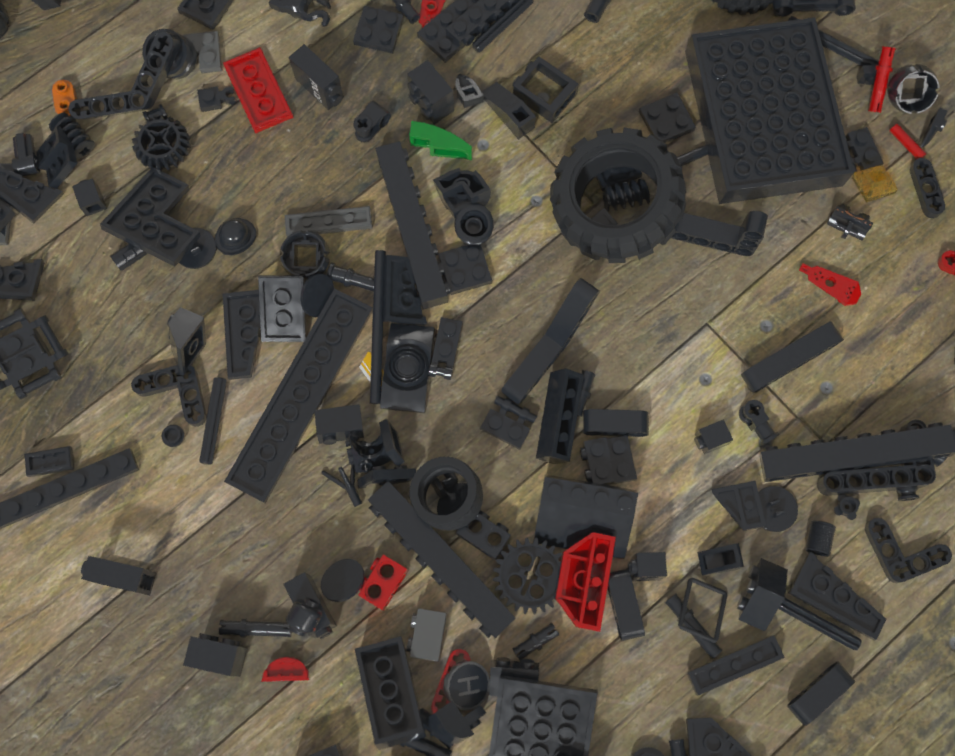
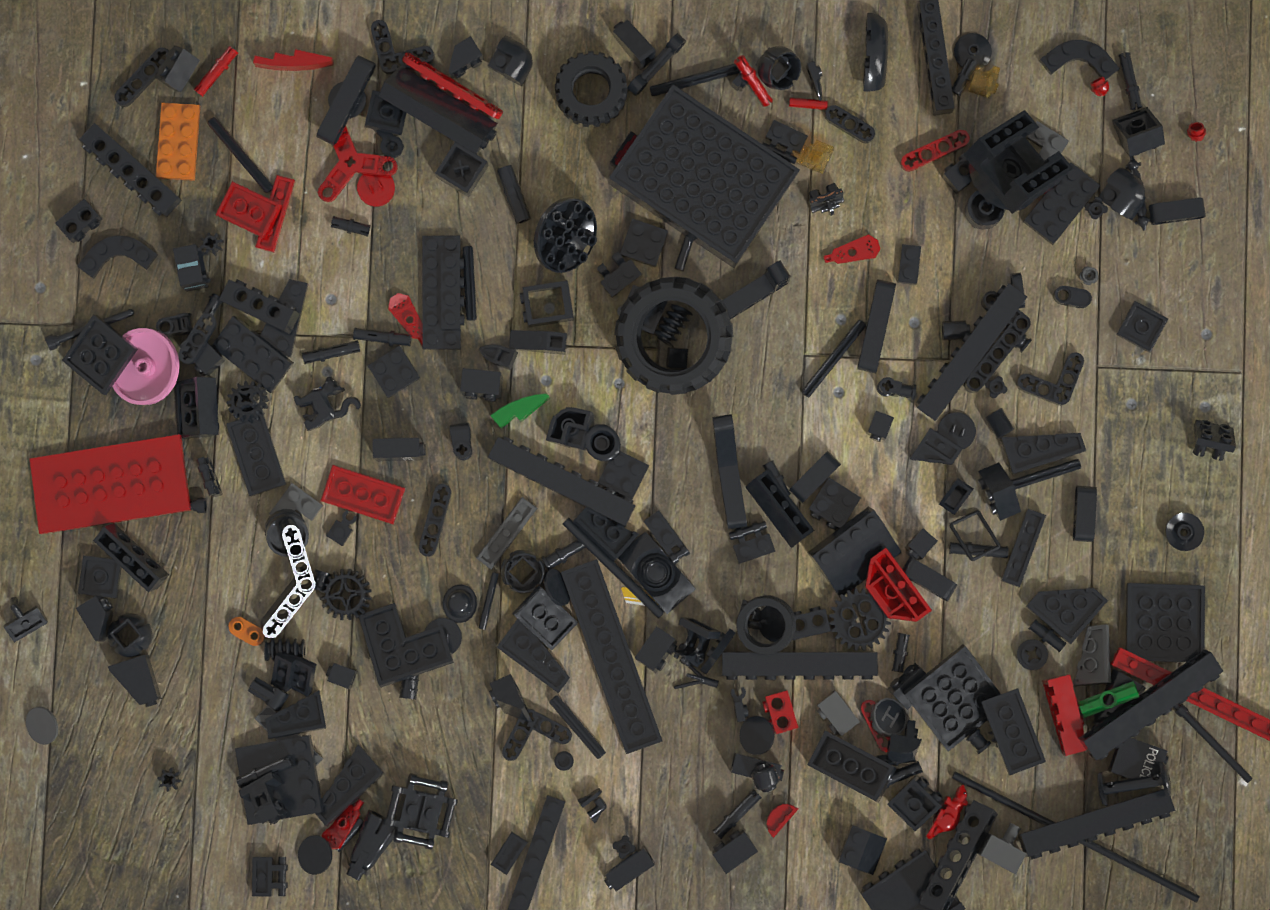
camera: 45 degrees left, 10 degrees up
(133, 553) = (629, 847): none -> black plate
(160, 502) = (600, 806): none -> black piece
(255, 257) = (488, 601): none -> black bar
(285, 156) = (431, 519): none -> black beam
(351, 541) = (740, 710): none -> black plate
(612, 47) = (564, 234): none -> black bracket
(618, 122) = (621, 277): none -> black plate
(728, 348) = (834, 357): none -> black axle
(856, 423) = (954, 330): none -> black brick
(869, 338) = (909, 264): none -> black plate

